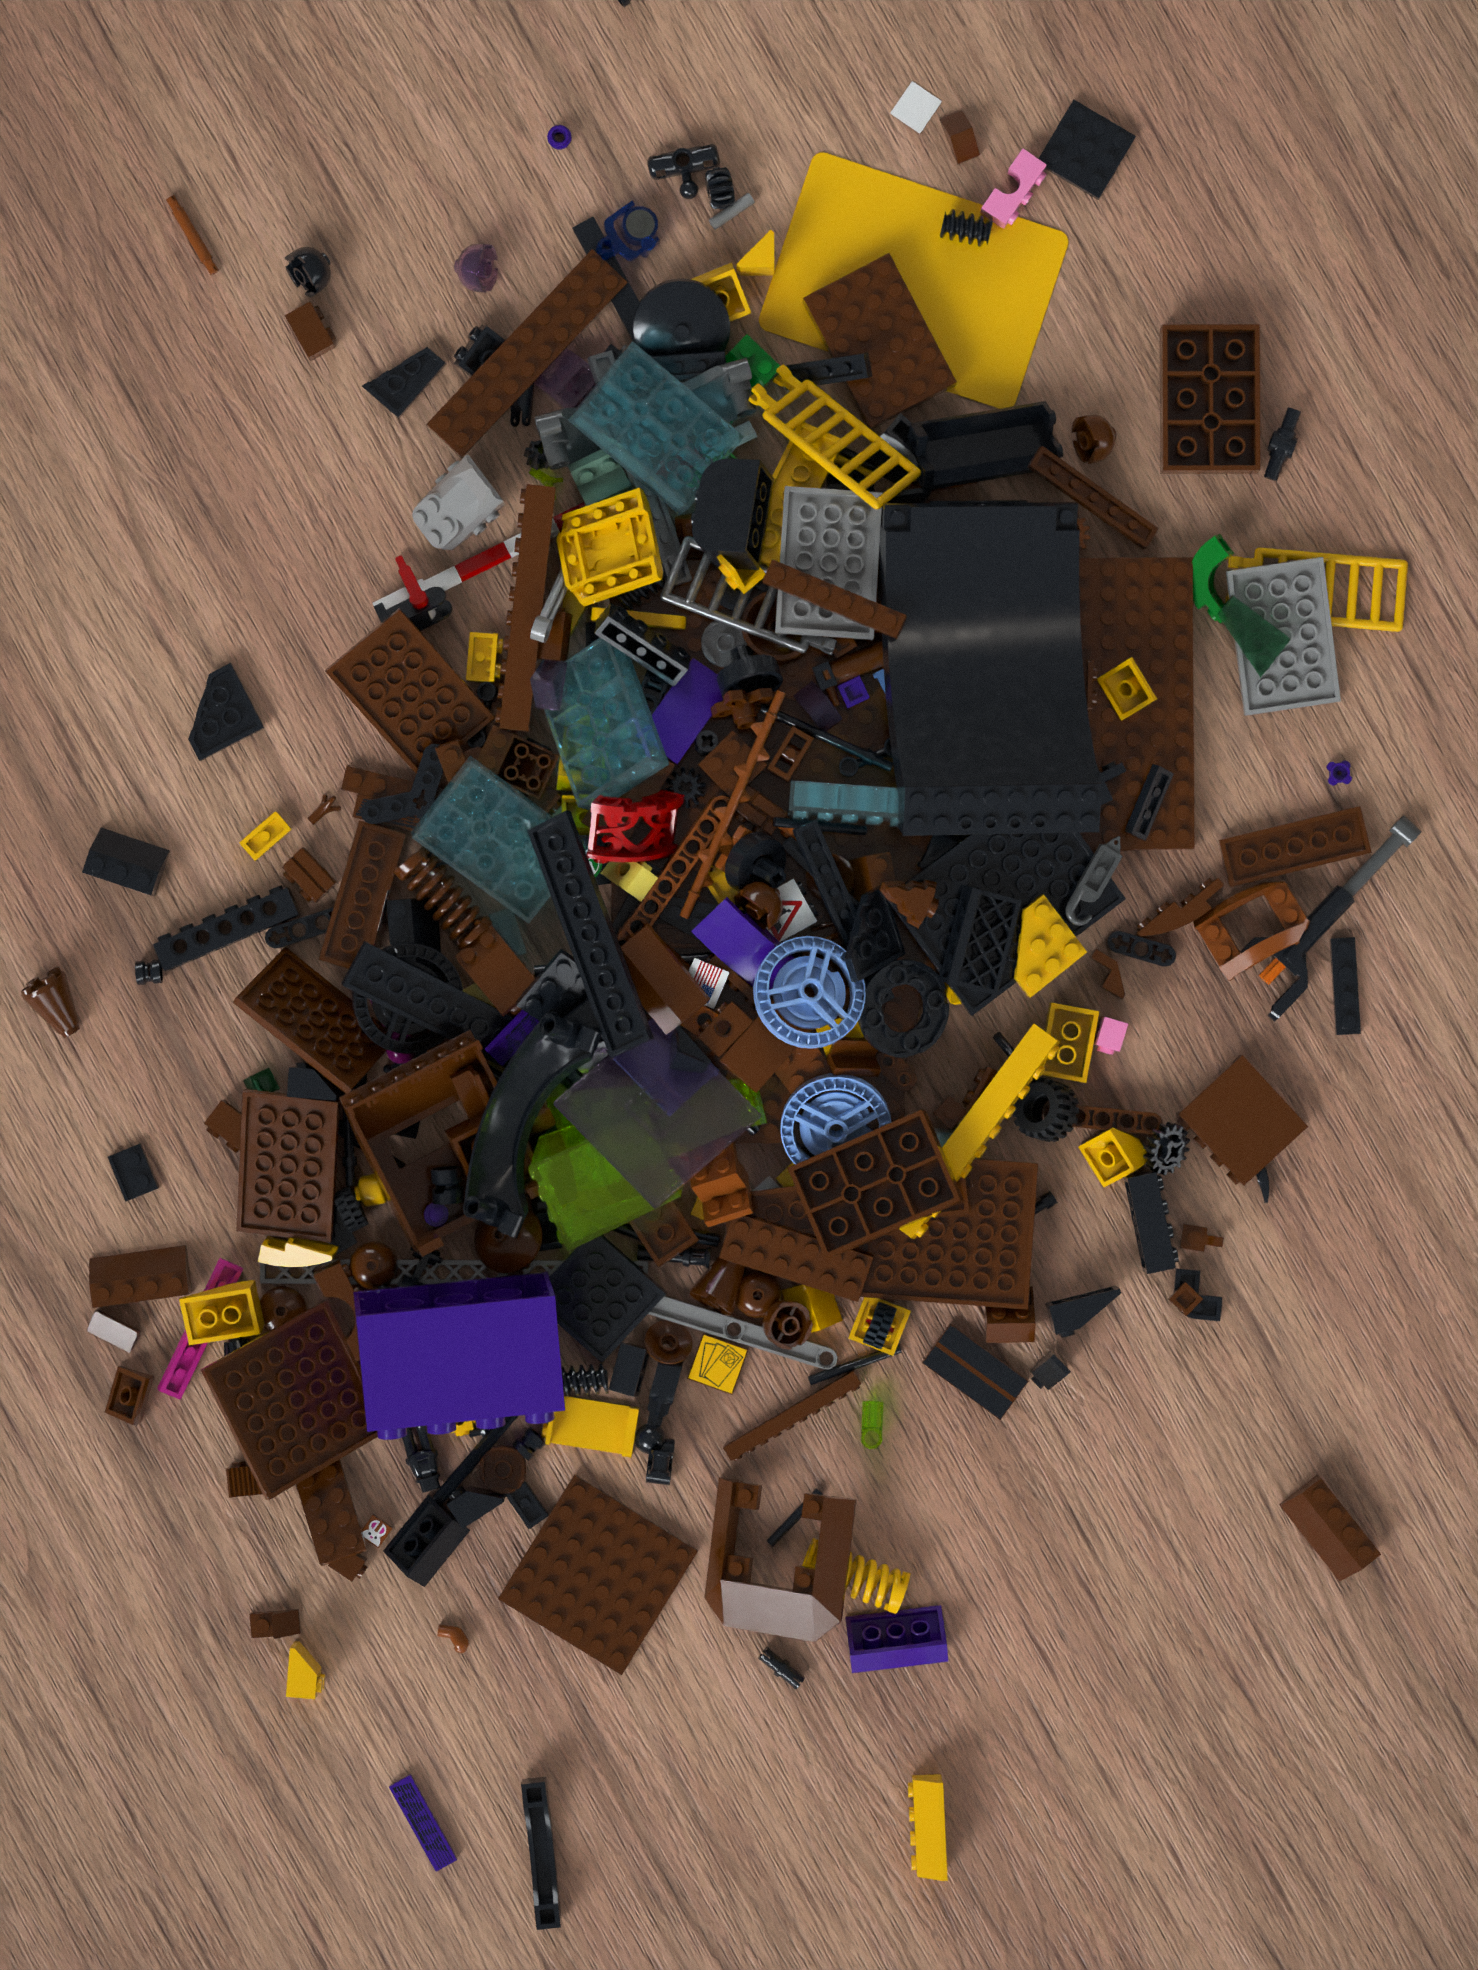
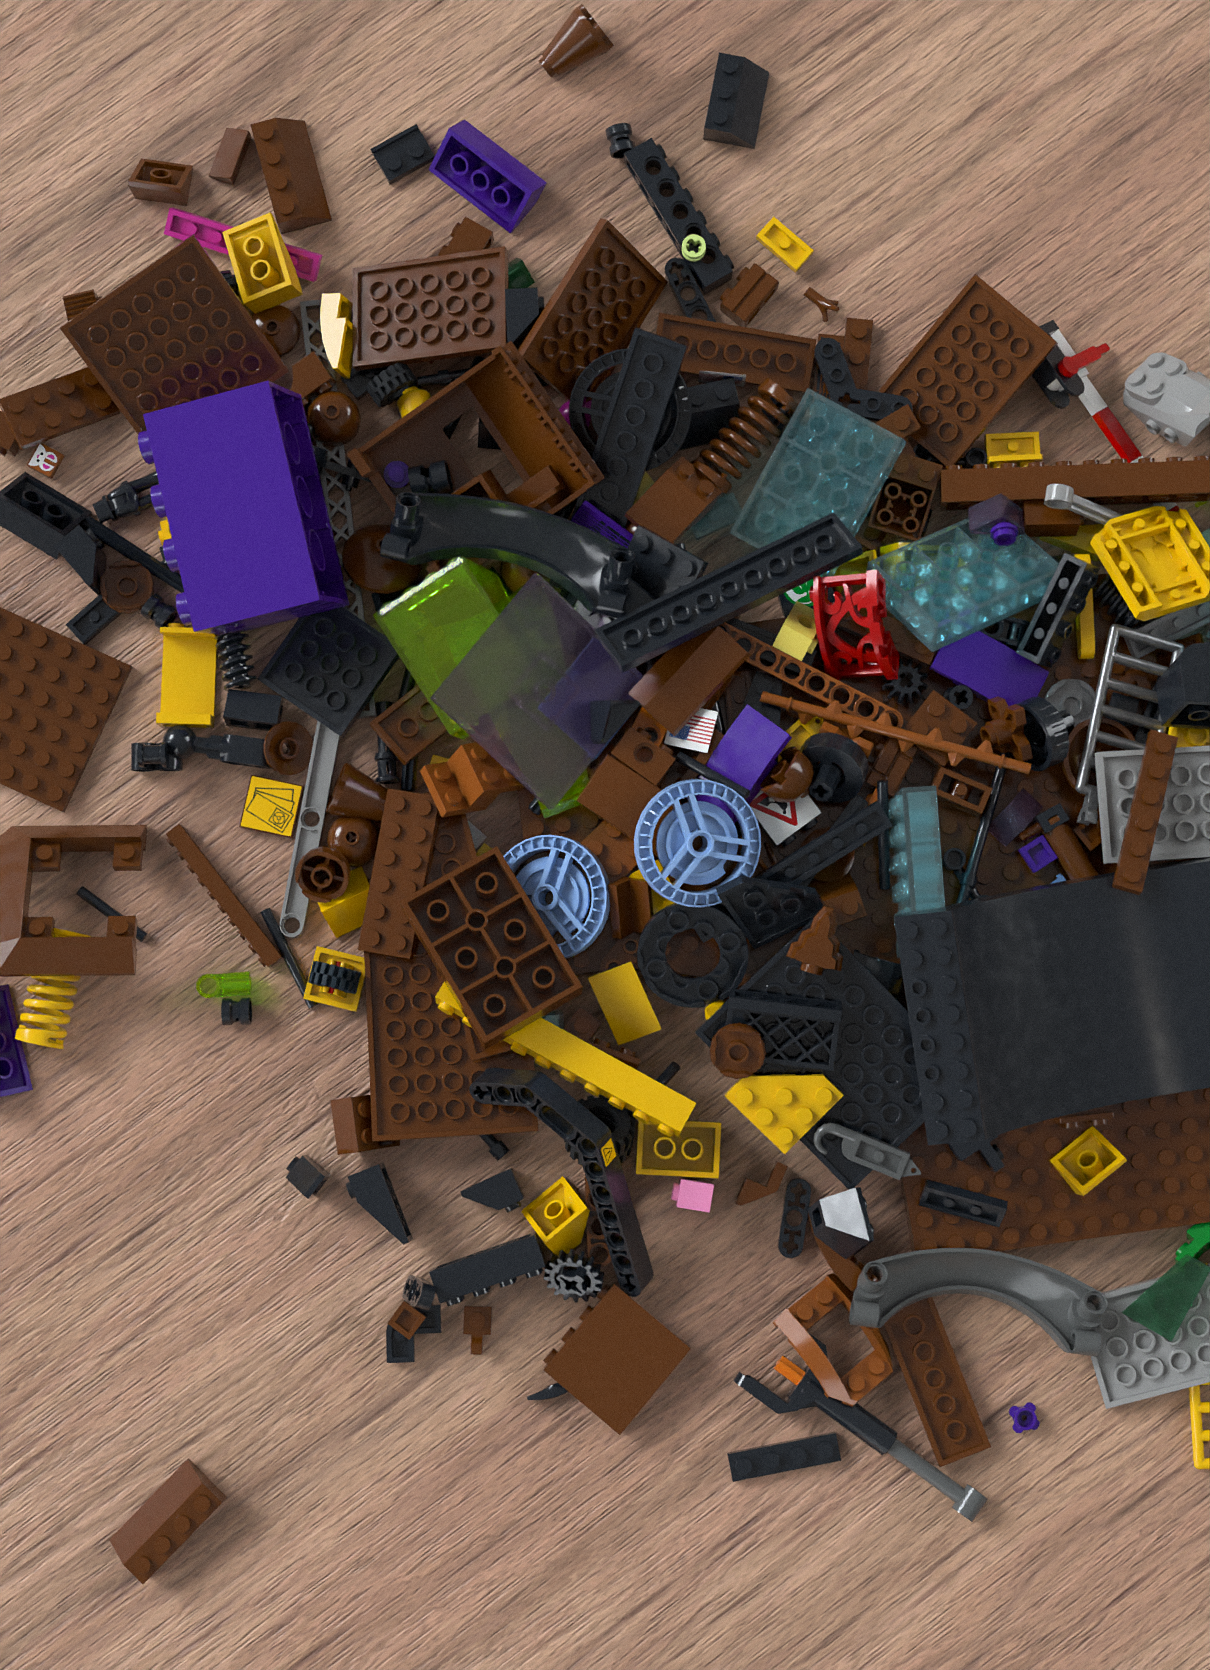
camera: 85 degrees right, 5 degrees down
(165, 1098) = (486, 175): none -> dark purple slope
(223, 714) = (909, 183): black plate -> none
(255, 917) = (695, 240): none -> yellowish green bush
(566, 681) = (1004, 533): none -> dark purple plate
(739, 578) = (1148, 707): yellow bracket -> none
(749, 970) = (710, 774): none -> black bar
(896, 1417) = (236, 1011): none -> black wheel
(937, 1073) = (624, 1003): none -> yellow sticker
(975, 1371) = (297, 1093): black tile -> none
(993, 981) = (737, 1050): none -> reddish brown tile
(1067, 1115) = (597, 1155): none -> black beam
(1084, 1206) = (497, 1191): none -> black slope
(1151, 909) = (842, 1222): none -> slope
(1163, 1285) = (419, 1292): none -> black beam
(1232, 747) = (1034, 1289): none -> dark grey panel

